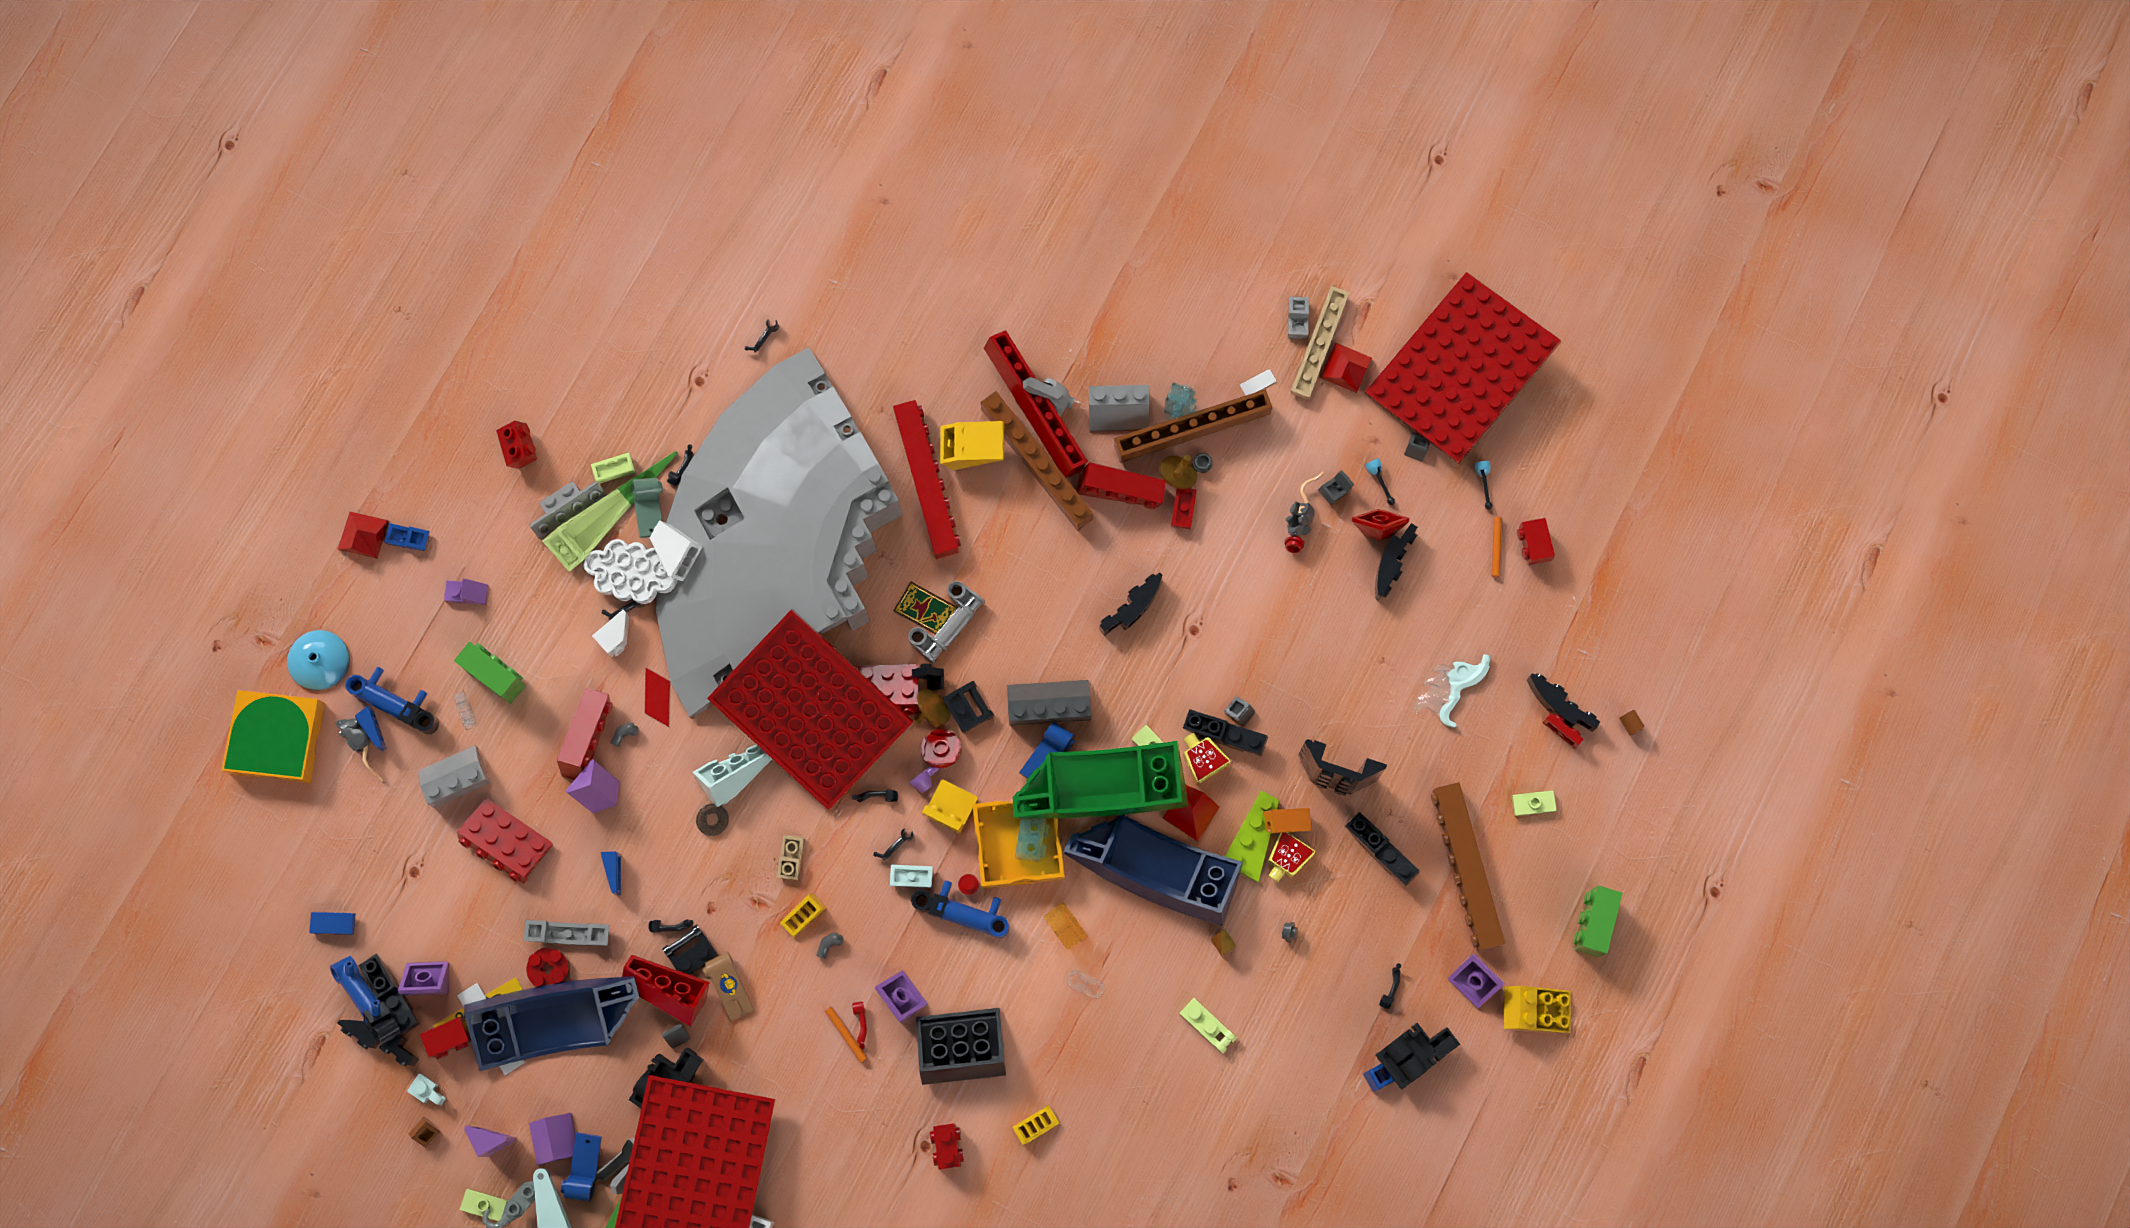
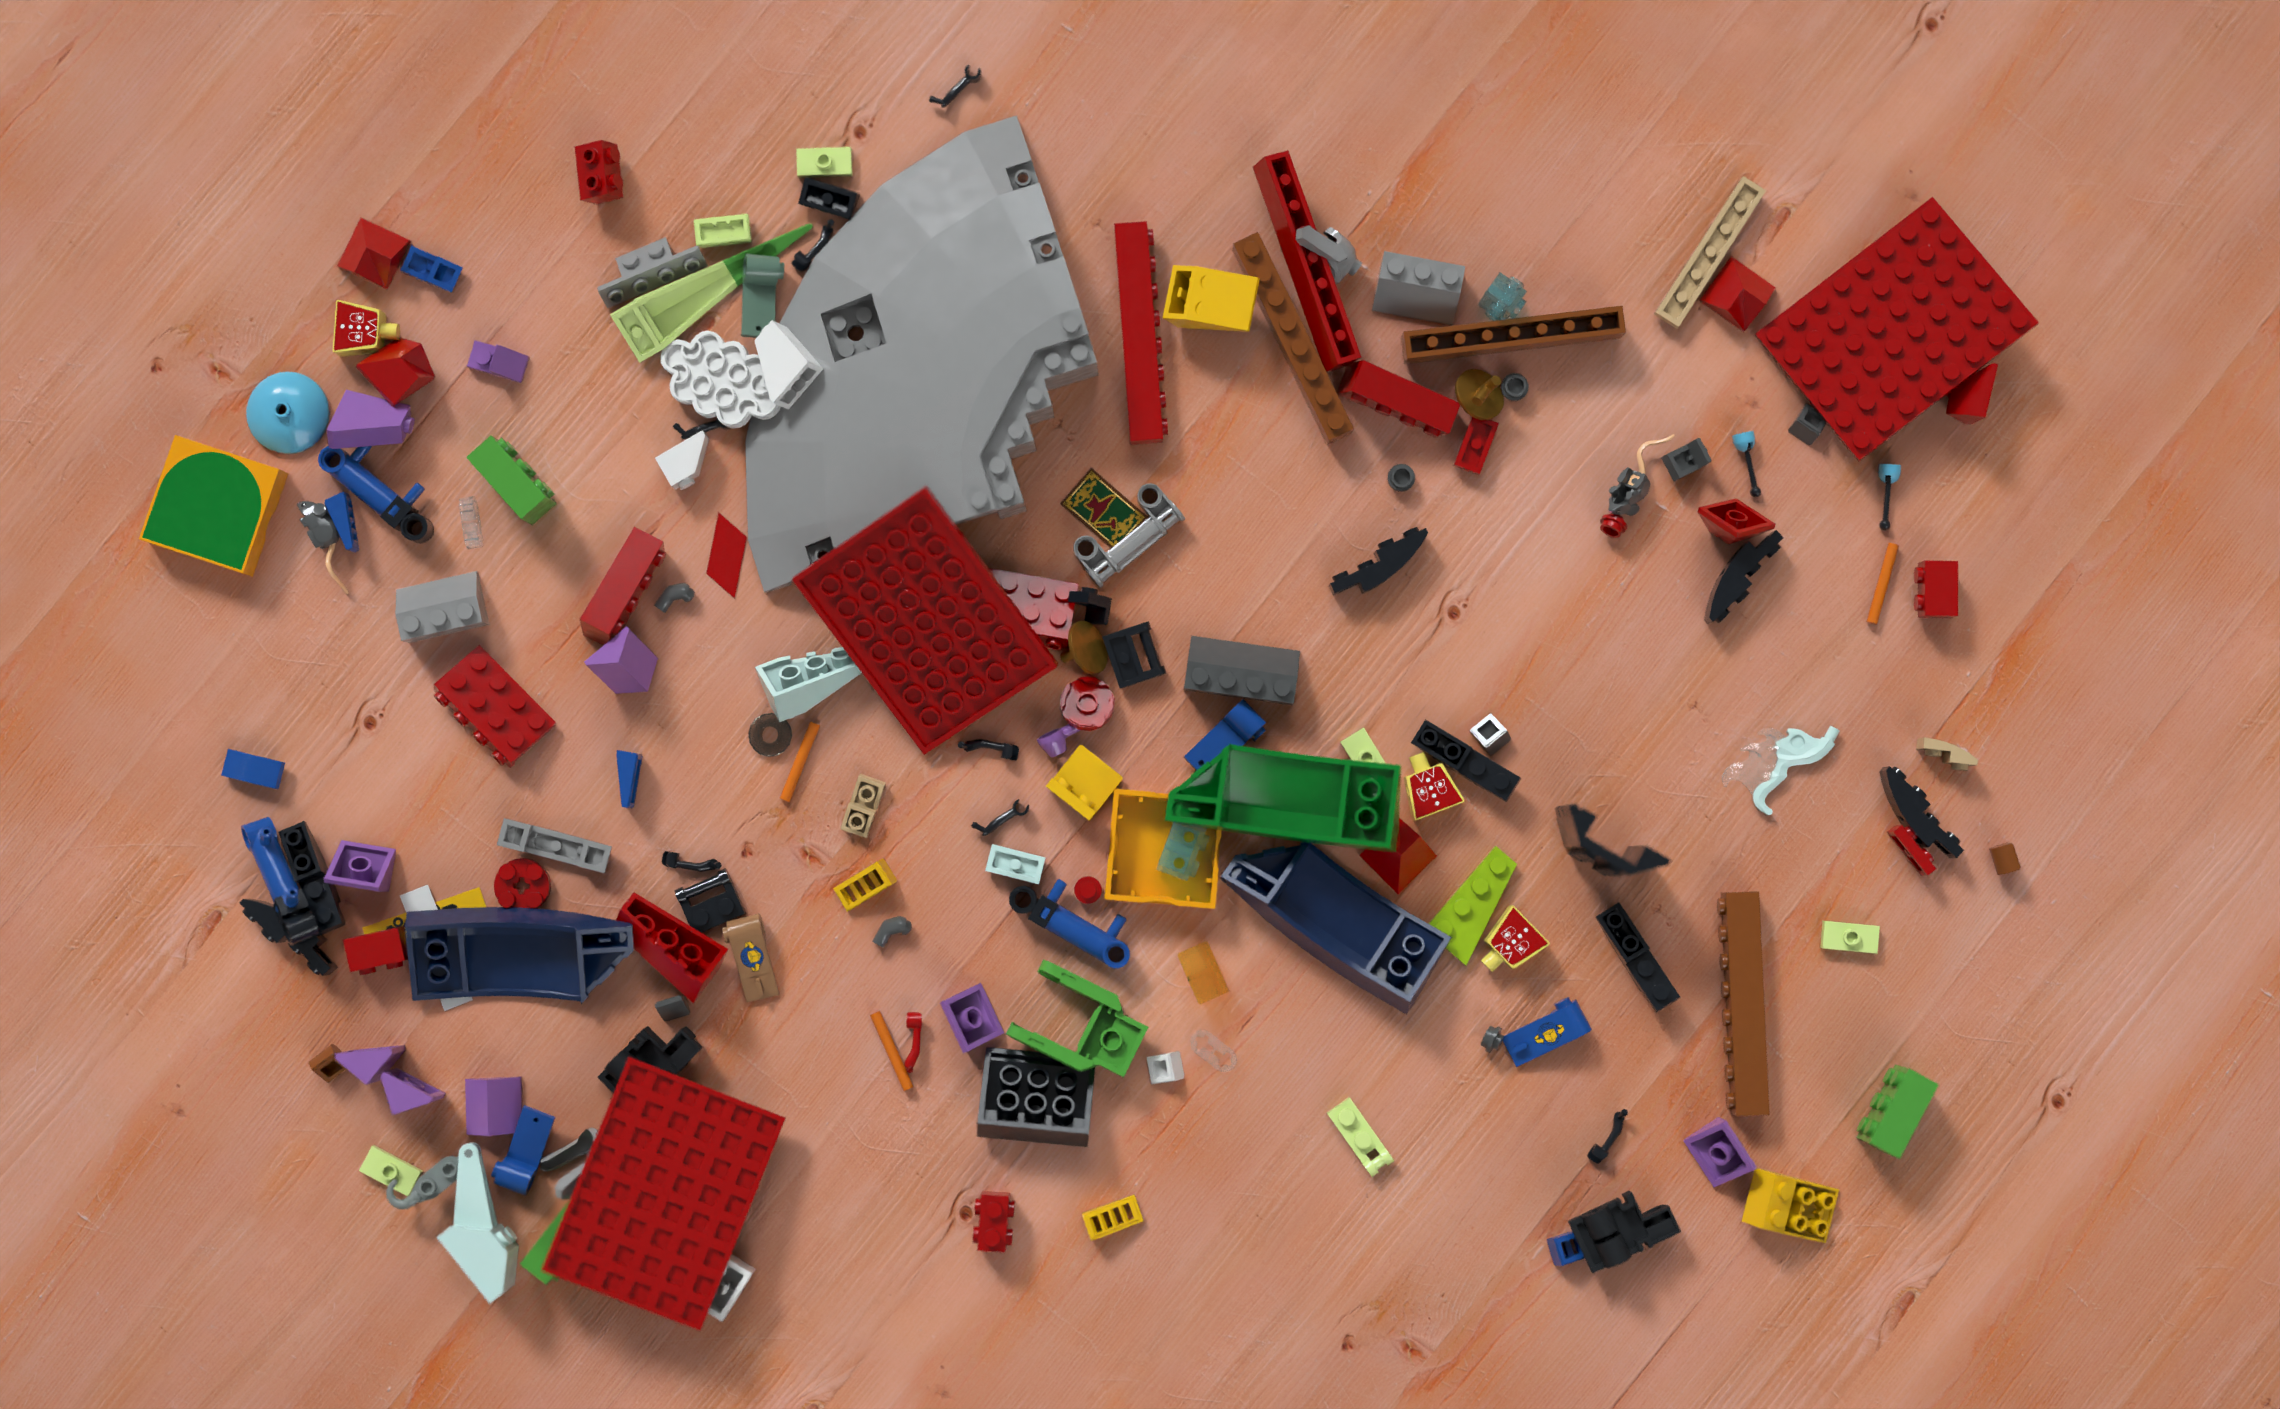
camera: 10 degrees right, 10 degrees up
(362, 589) = (361, 329): none -> torso
(378, 653) = (368, 422): none -> medium lavender slope
(394, 612) = (397, 370): none -> red slope
(424, 1089) = (338, 1008): light aqua plate -> none
(455, 1121) = (370, 1062): none -> medium lavender slope
(677, 406) = (824, 162): none -> yellowish green plate
(685, 430) = (828, 198): none -> black slope
(738, 834) = (799, 761): none -> orange bar
(1005, 990) = (1108, 1039): none -> bright green plate
(1052, 1004) = (1165, 1067): none -> white slope
(1135, 542) = (1401, 477): none -> dark grey plate
(1223, 942) = (1403, 1035): pearl gold slope -> none
(1258, 382) = (1613, 290): white sticker -> none
(1287, 820) = (1522, 895): orange hinge -> none
(1298, 317) = (1688, 210): light grey slope -> none
(1328, 918) = (1547, 1033): none -> blue door
(1527, 402) = (1972, 397): none -> red slope
(1577, 656) = (1952, 754): none -> tan slope

